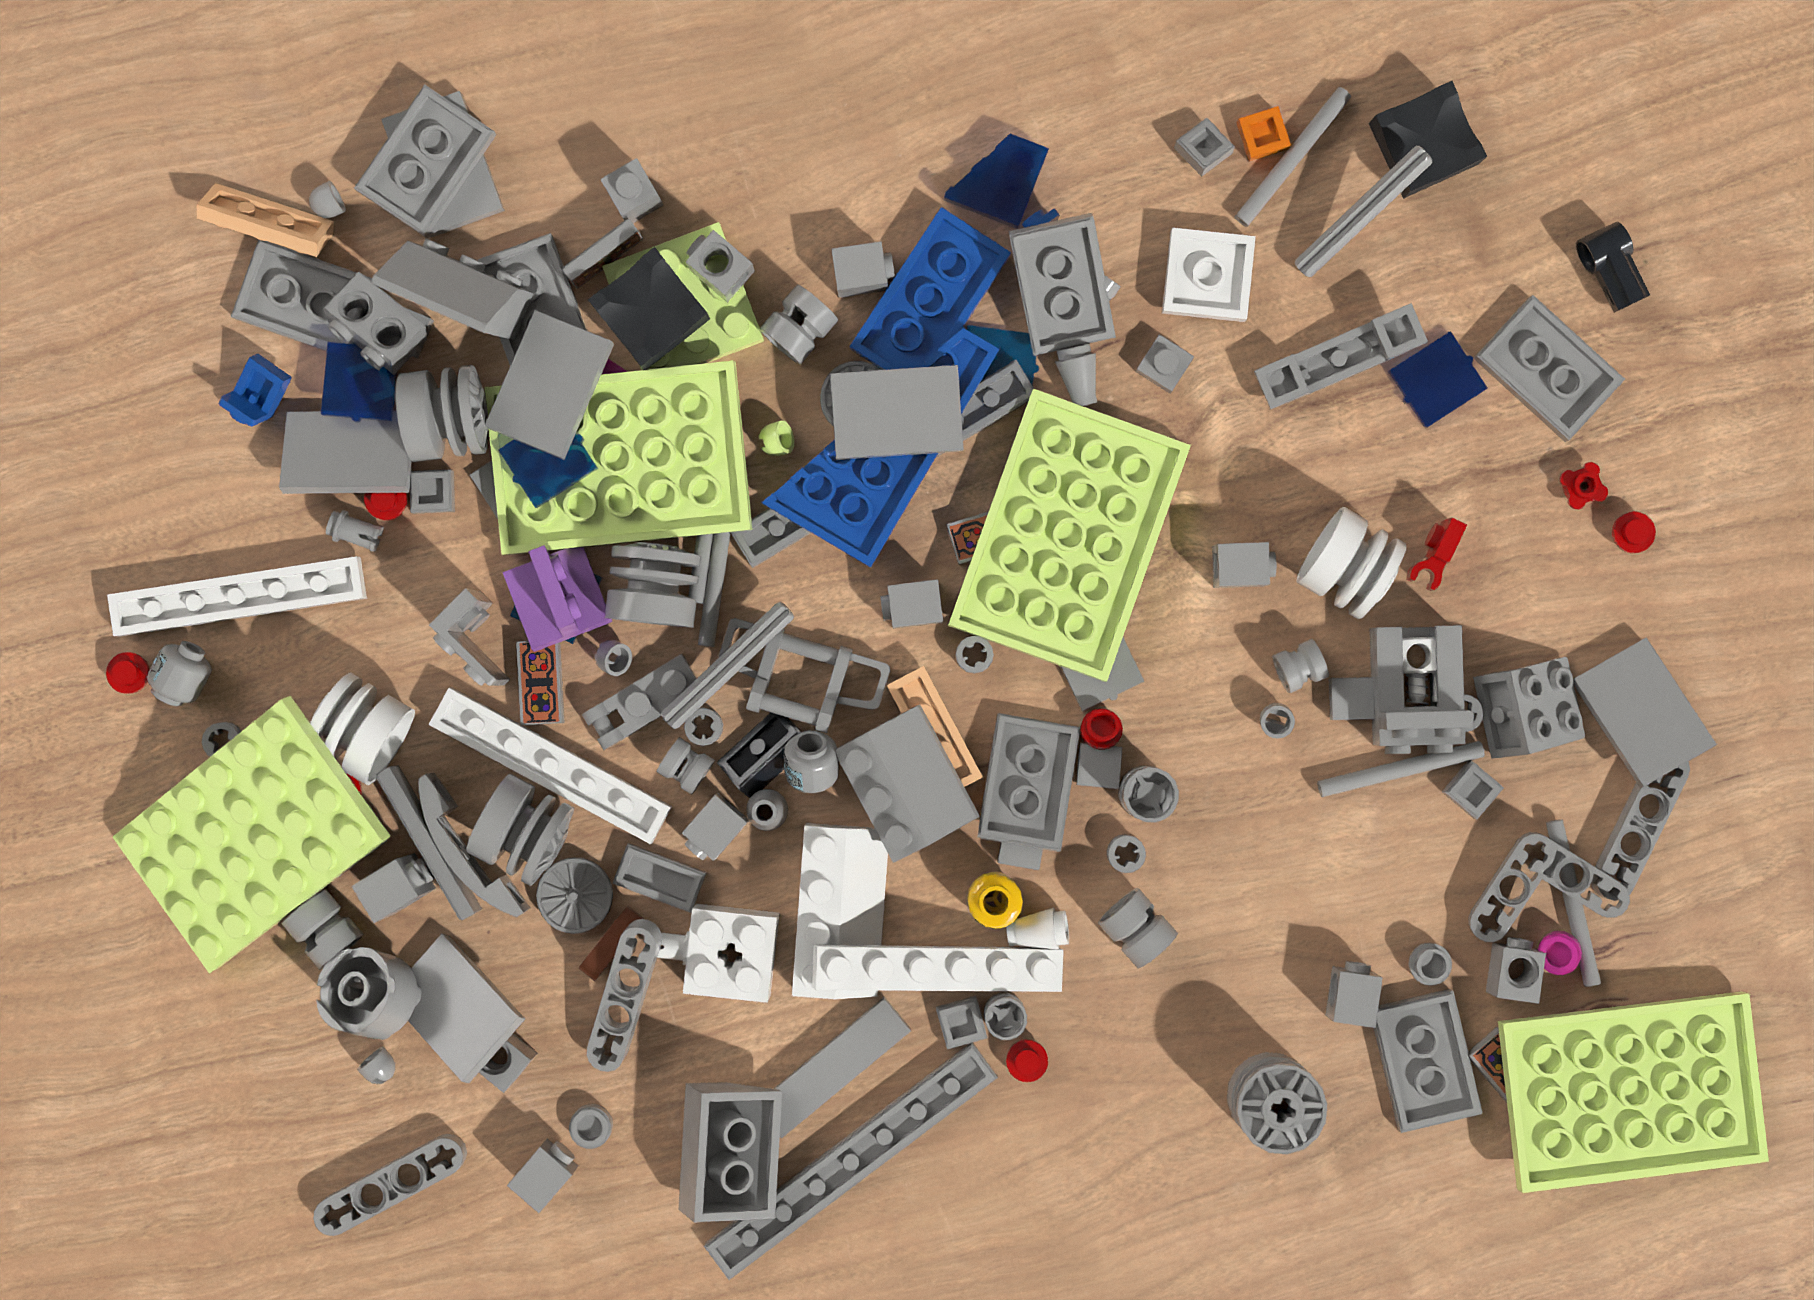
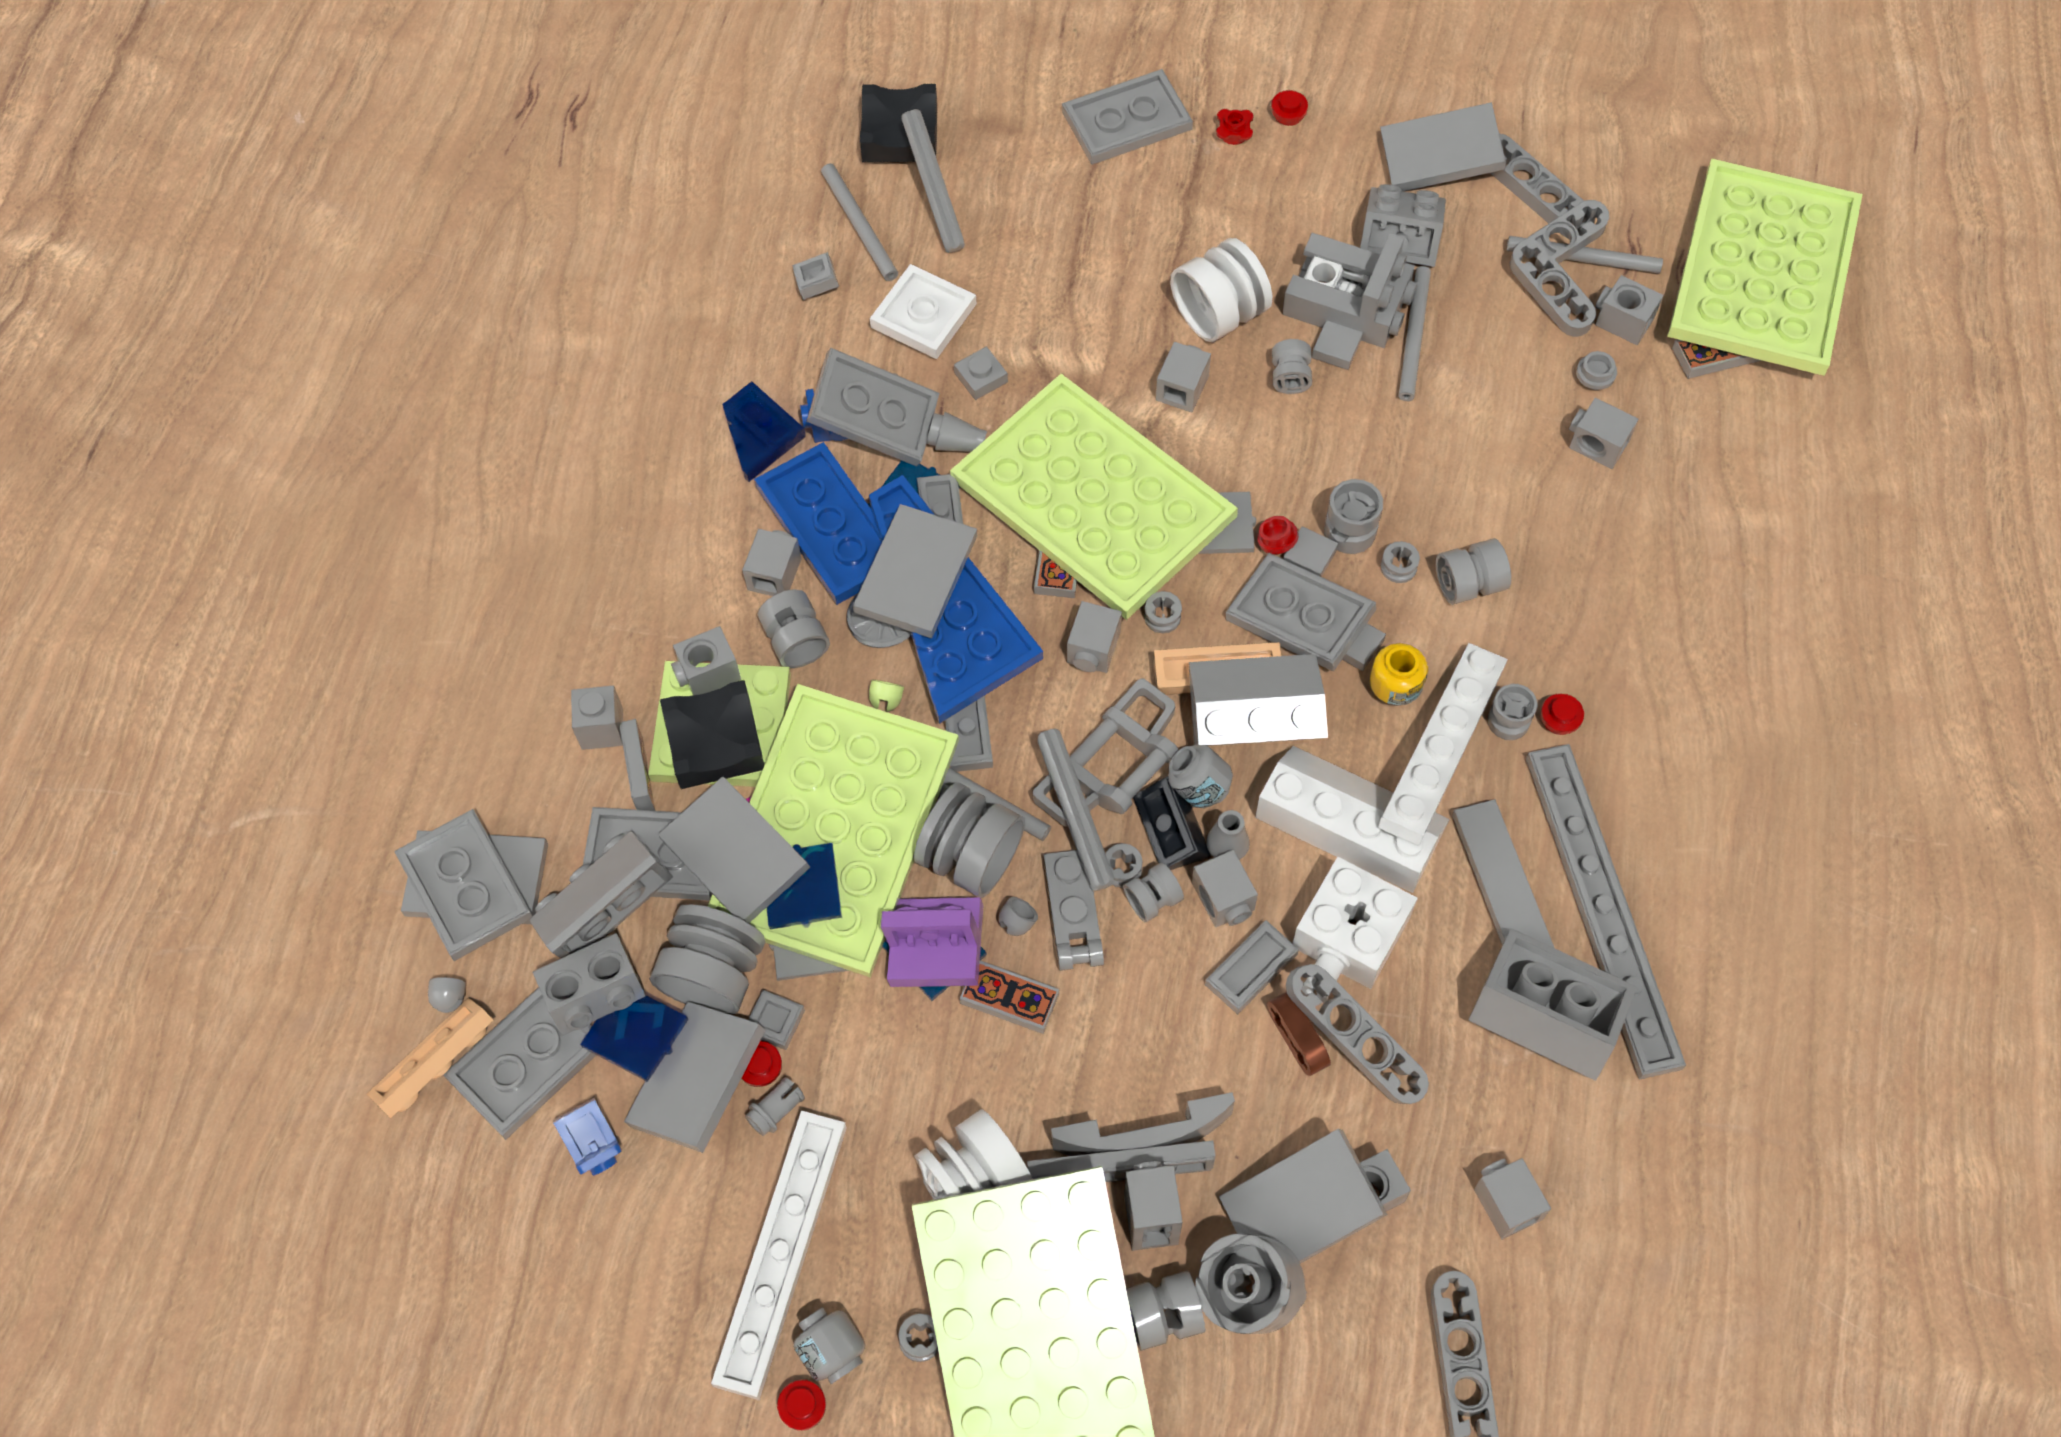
camera: 60 degrees left, 25 degrees down
(378, 1067) = (1331, 1323): light grey hinge -> none
(465, 613) = (933, 1040): light grey bracket -> none
(520, 829) = (1155, 1053): light grey wheel -> none
(550, 765) = (1094, 1018): white plate -> none
(574, 895) = (1235, 1052): light grey wheel -> none
(590, 1126) = (1477, 1136): light grey tile -> none
(961, 1022) = (1503, 757): light grey tile -> none
(1040, 930) = (1442, 652): white cone -> none
(1263, 133) = (828, 234): orange tile -> none
(1266, 1081) = (1678, 519): light grey wheel -> none
(1273, 727) = (1323, 397): light grey hinge -> none
(1341, 357) = (1043, 242): light grey slope -> none
(1426, 1061) = (1685, 407): light grey tile -> none
(1437, 379) = (1096, 192): clear blue piece -> none
(1442, 544) = (1234, 224): red plate -> none
(1472, 789) = (1455, 289): light grey tile -> none
(1561, 951) = (1624, 266): dark pink tile -> none
(1610, 258) = (1057, 44): black piece -> none

